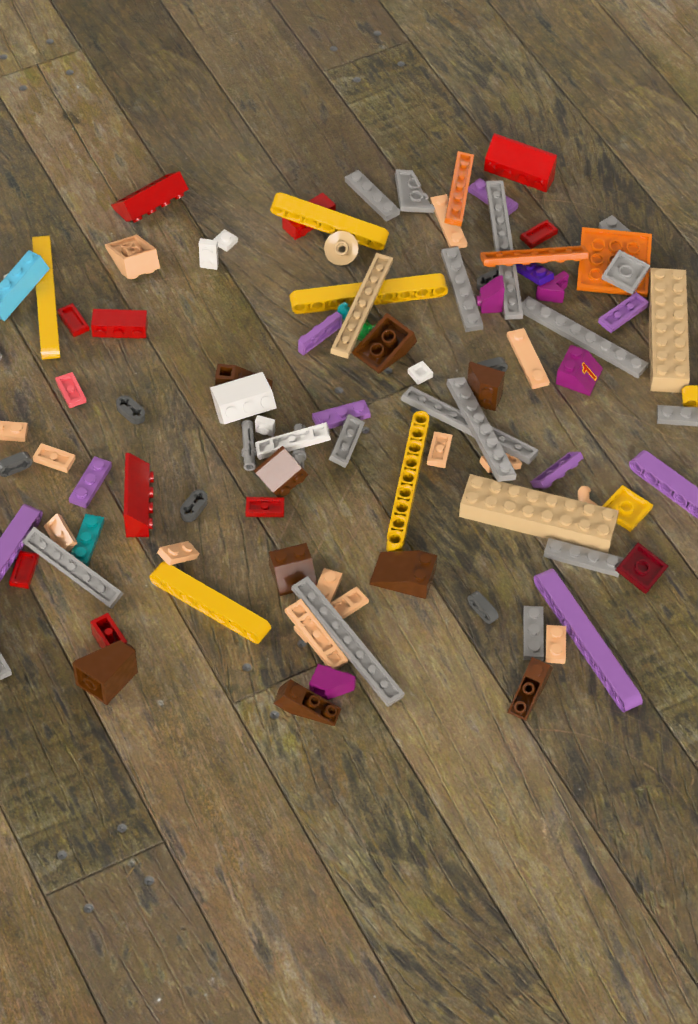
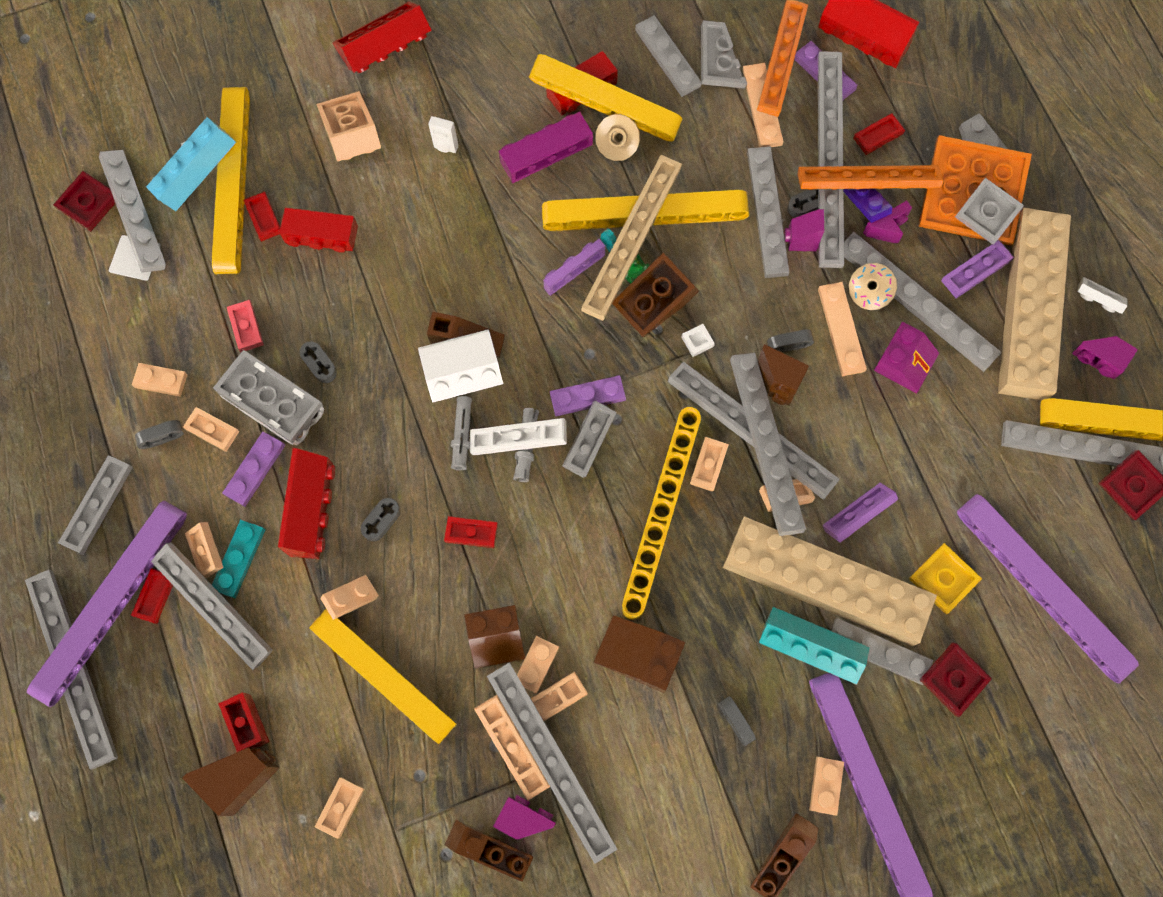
camera: 10 degrees right, 20 degrees up
(98, 431) = (269, 398): none -> light grey piece
(189, 688) = (339, 808): none -> light nougat plate
(226, 240) = (471, 110): white plate -> none
(265, 425) = (485, 407): white plate -> none
(281, 472) = (496, 491): slope -> none
(287, 258) = (545, 147): none -> magenta brick
(533, 552) = (814, 645): none -> teal brick
(533, 633) = (799, 765): light grey plate -> none
(550, 335) = (875, 298): none -> tan dish
(584, 495) = (891, 558): light nougat arm -> none

